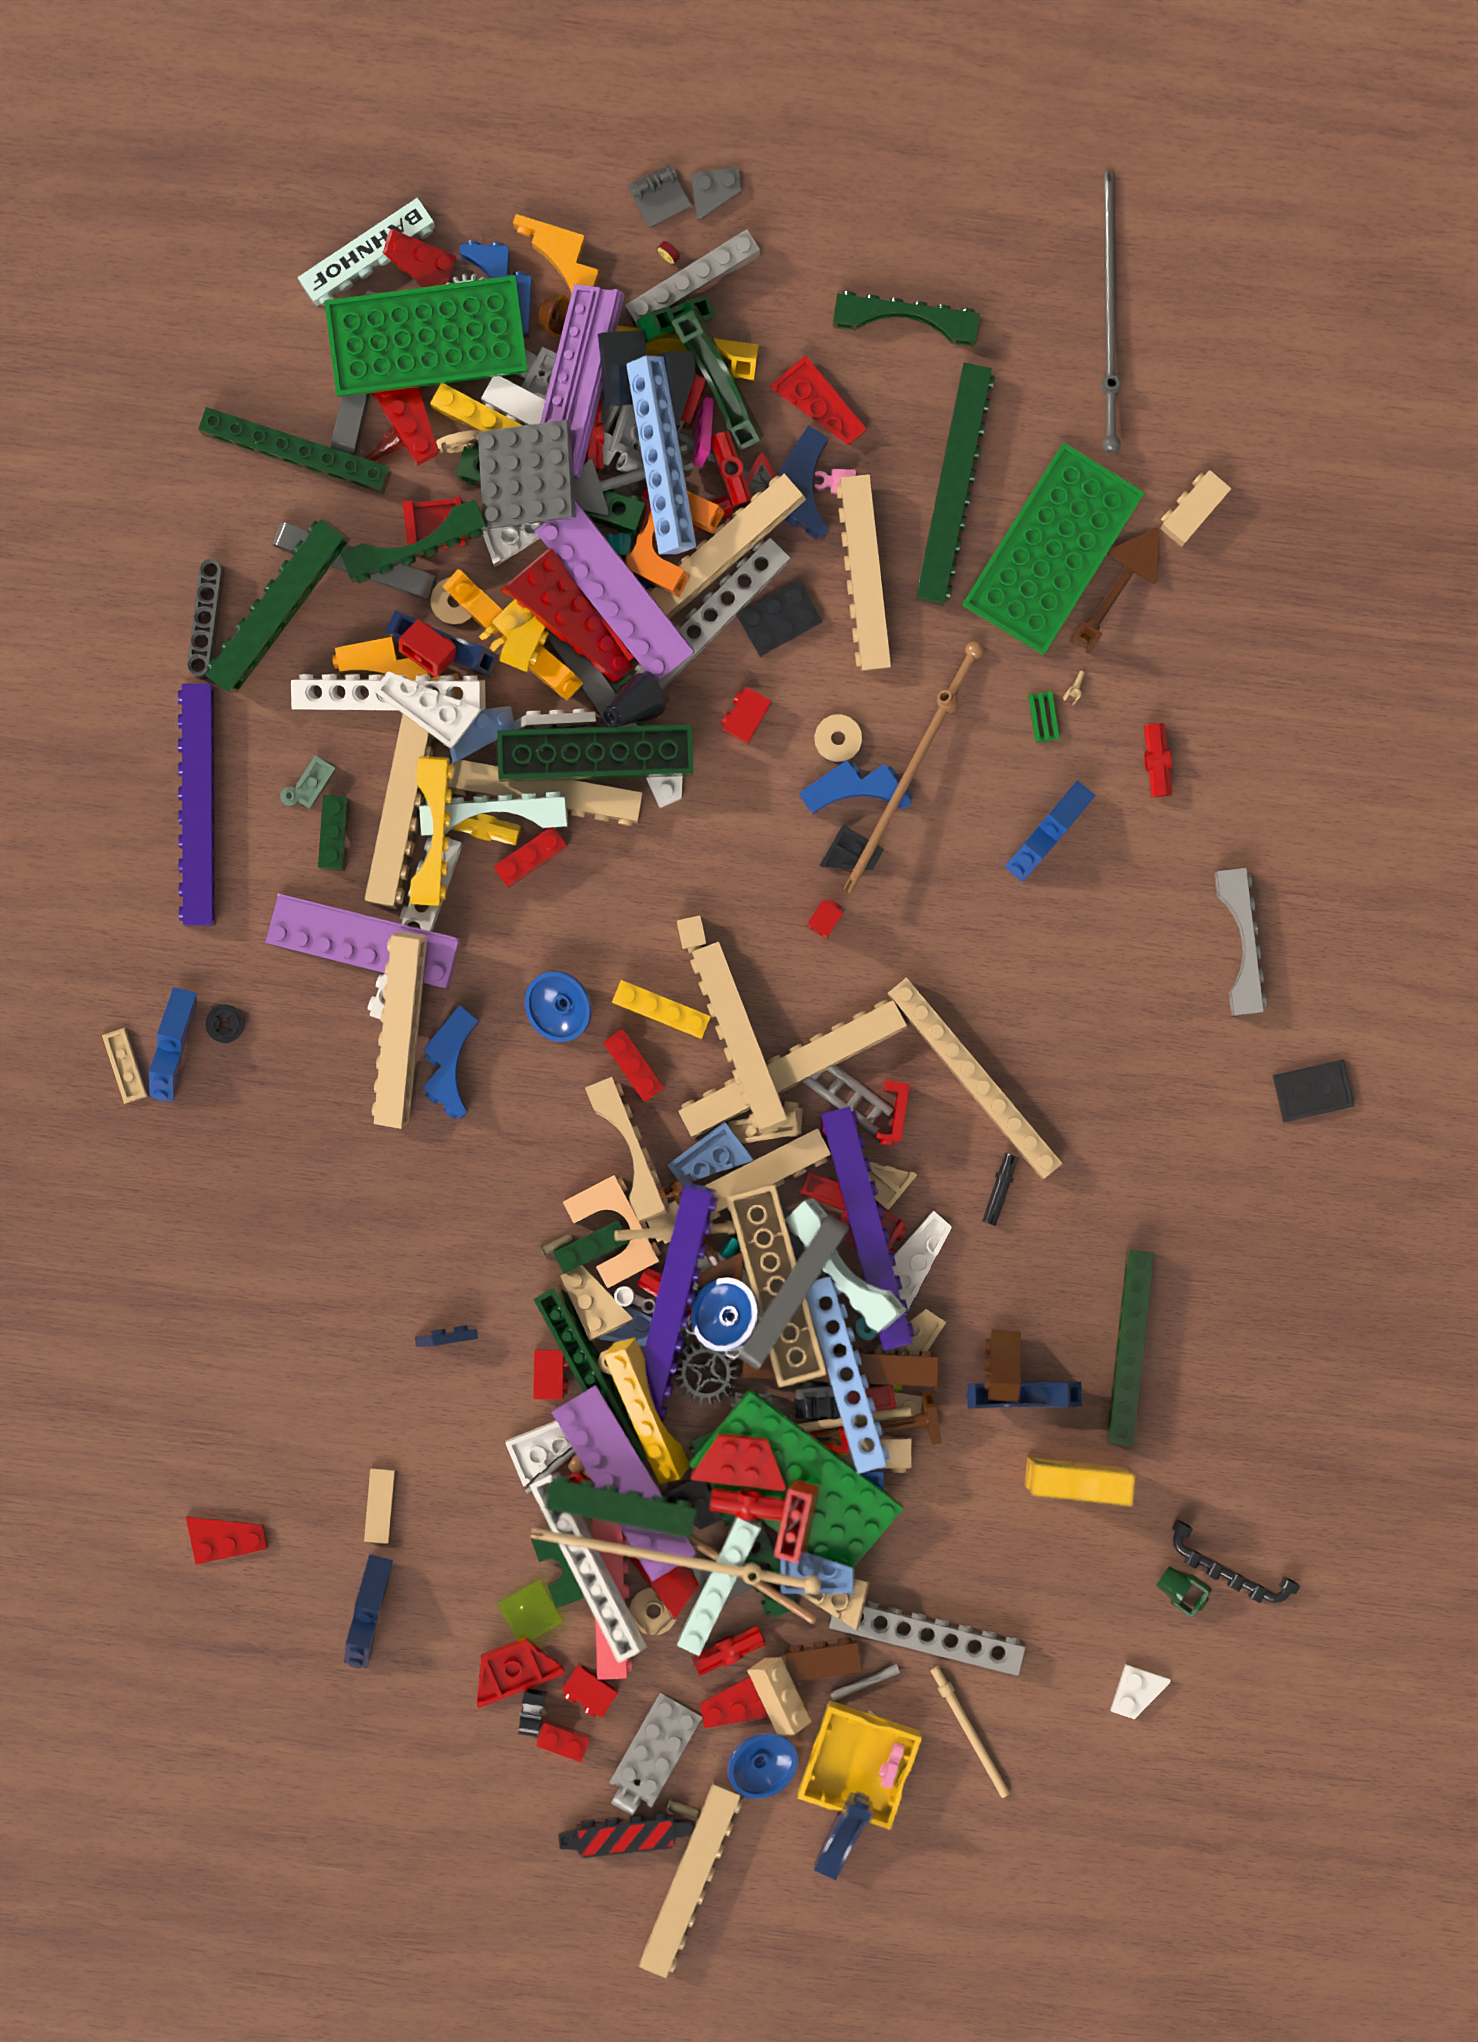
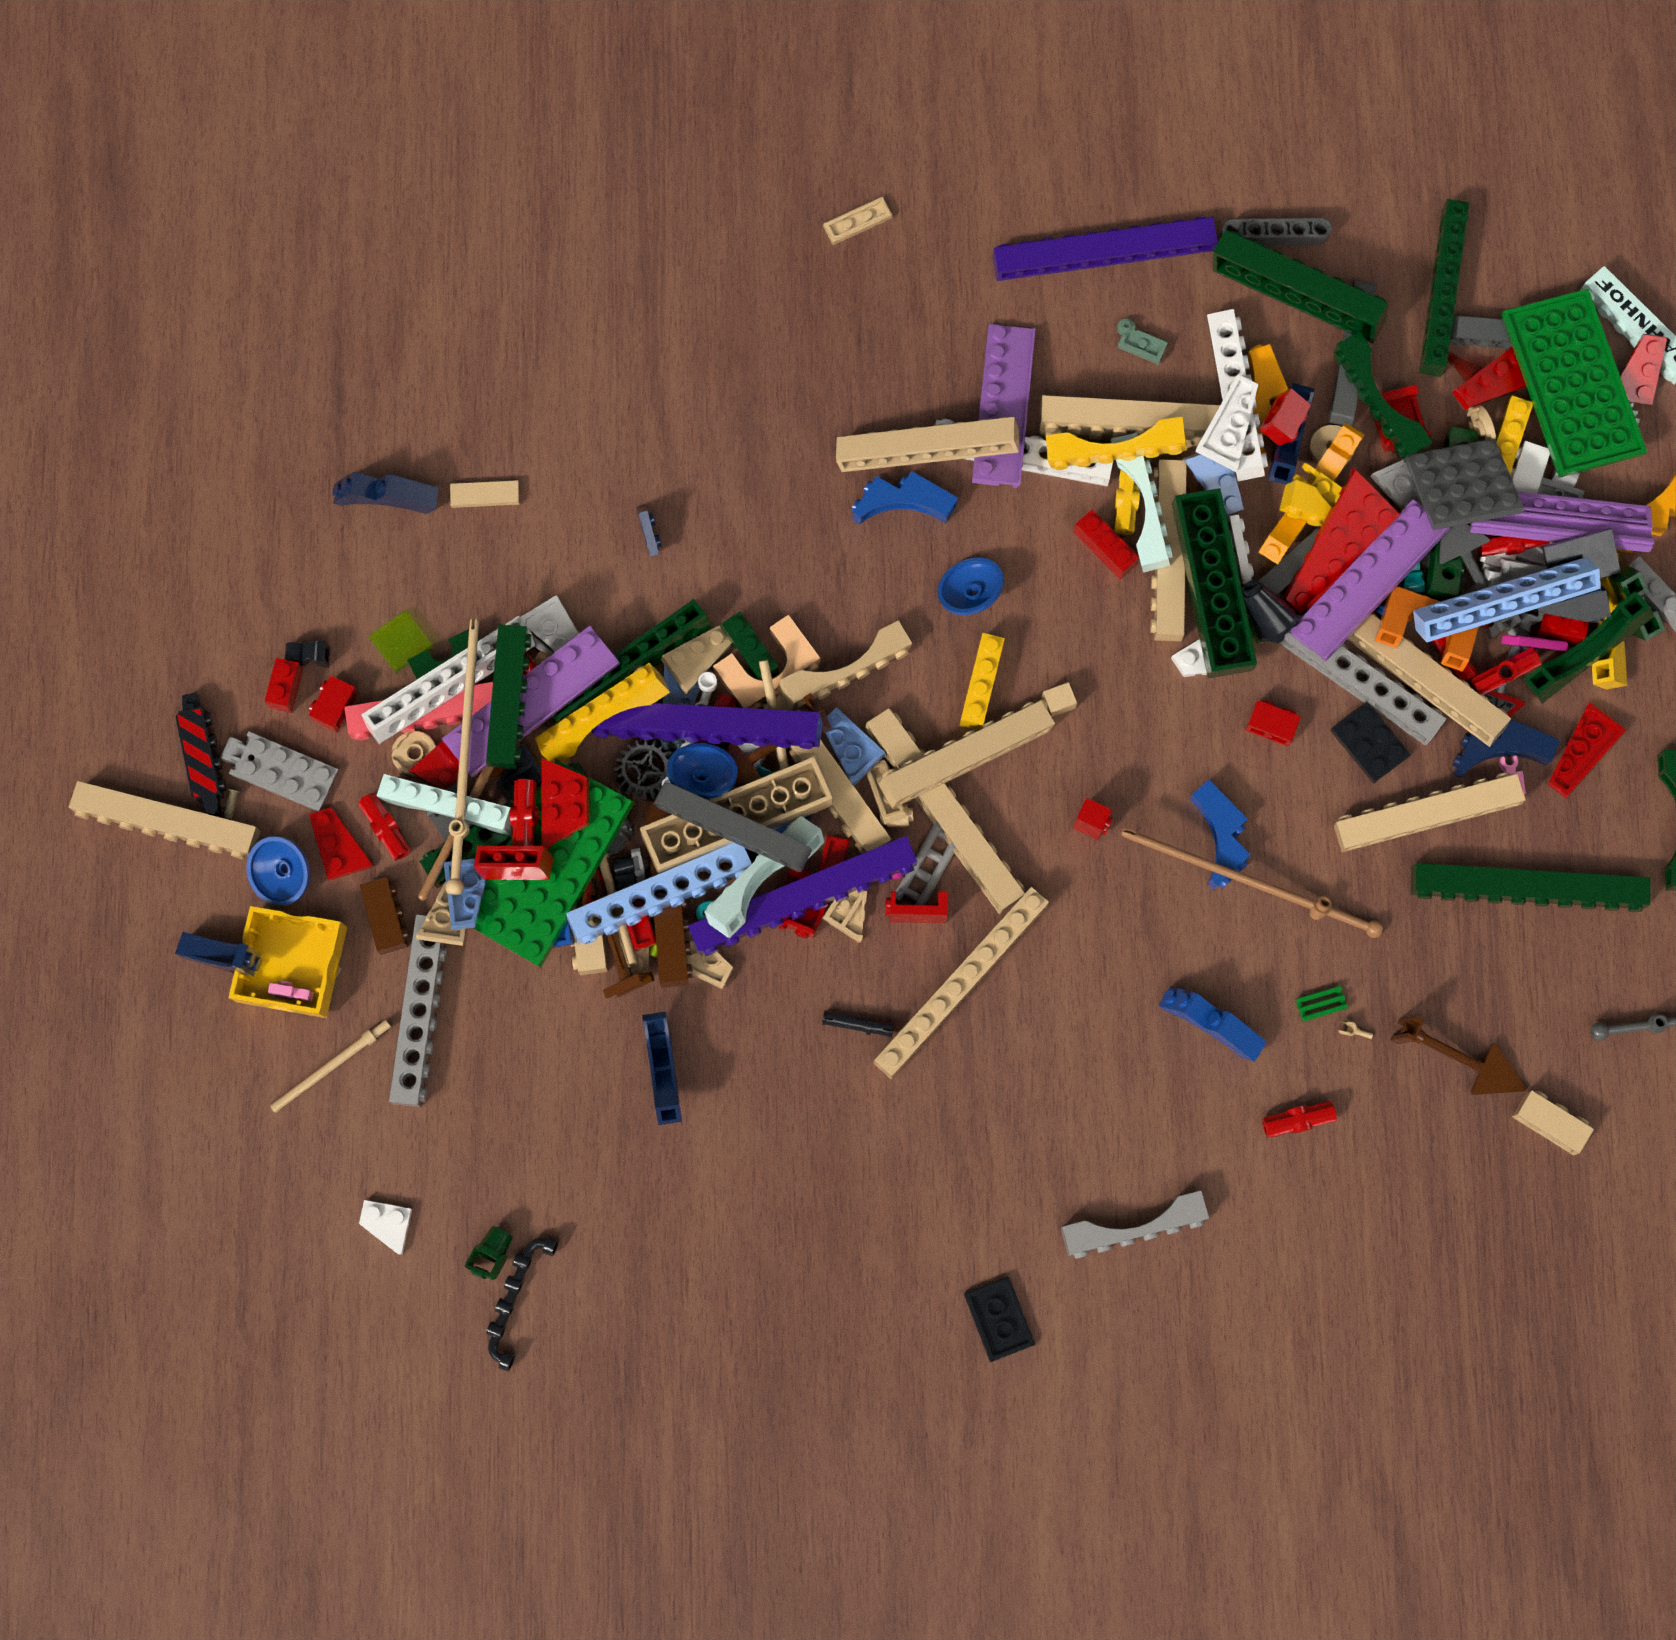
camera: 85 degrees right, 10 degrees down
(171, 1044) = (887, 251): blue arch -> none
(213, 1023) = (908, 290): black gear -> none
(223, 1539) = (437, 360): red wing -> none
(332, 833) = (1113, 365): dark green arch -> none
(494, 262) = (1657, 441): blue arch -> none
(513, 1670) = (345, 632): red wing -> none
(549, 1374) = (623, 626): red brick -> none
(552, 314) = (1617, 492): reddish brown helmet -> none
(555, 1245) = (742, 609): dark tan piece -> none
(633, 1065) = (925, 663): red brick -> none
(779, 1696) = (345, 877): tan brick -> none
(847, 850) = (1164, 831): black wing -> none
(848, 728) = (1275, 802): tan tile -> none
(865, 1682) = (367, 959): light grey bar -> none
(918, 1253) = (781, 952): white wing -> none
(1003, 1365) = (688, 1044): reddish brown brick -> none
(1053, 549) = (1486, 990): green plate -> none
(1079, 1481) = (584, 1129): yellow tile -> none
(1129, 1347) = (721, 1169): dark green brick -> none

